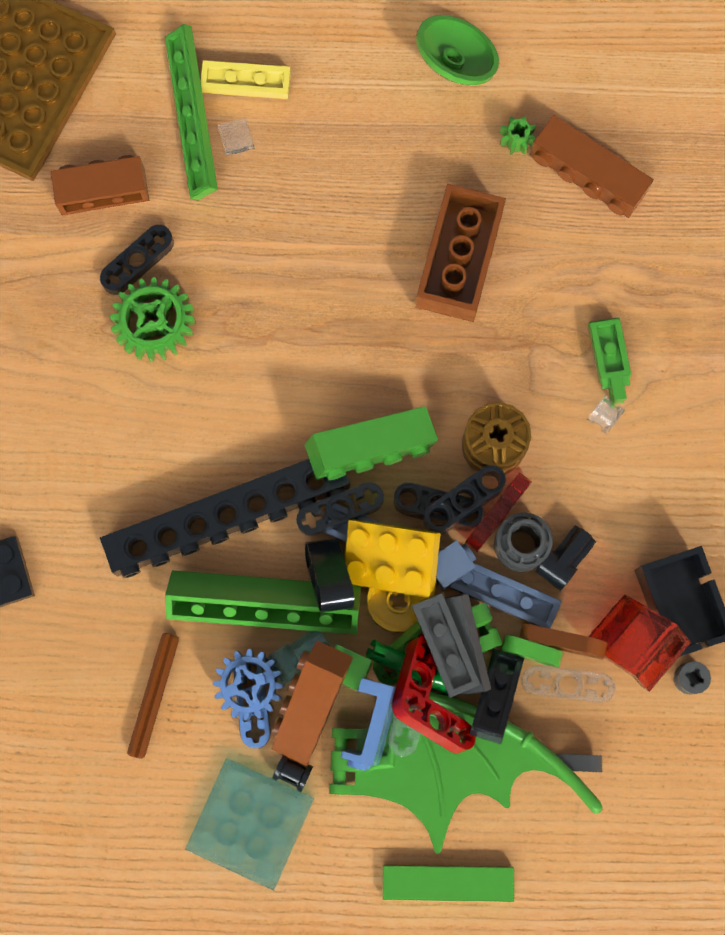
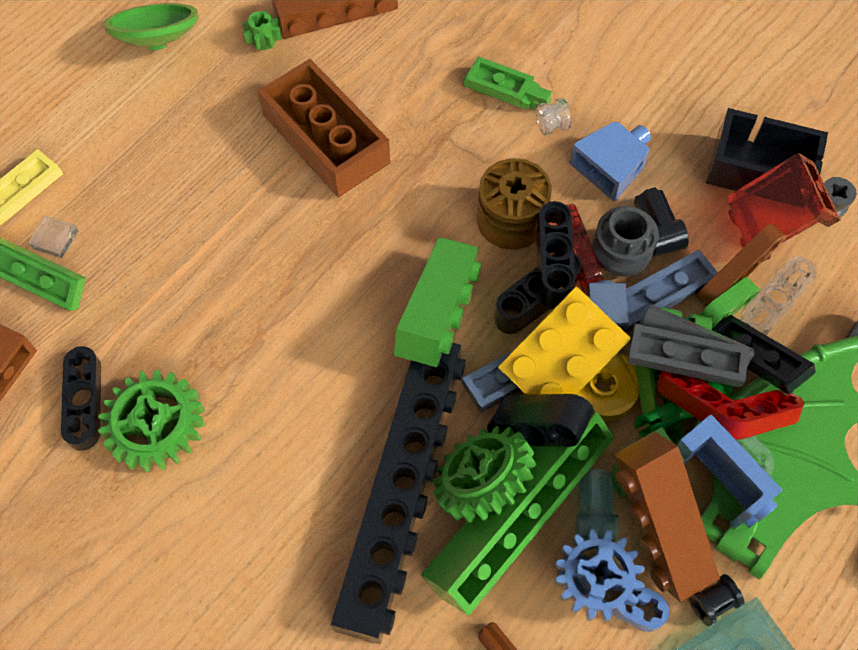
camera: 55 degrees left, 15 degrees down
(266, 569) = (484, 474): none -> bright green gear
(315, 509) = (472, 357): black beam -> none
(602, 485) = (612, 157): none -> medium blue torso

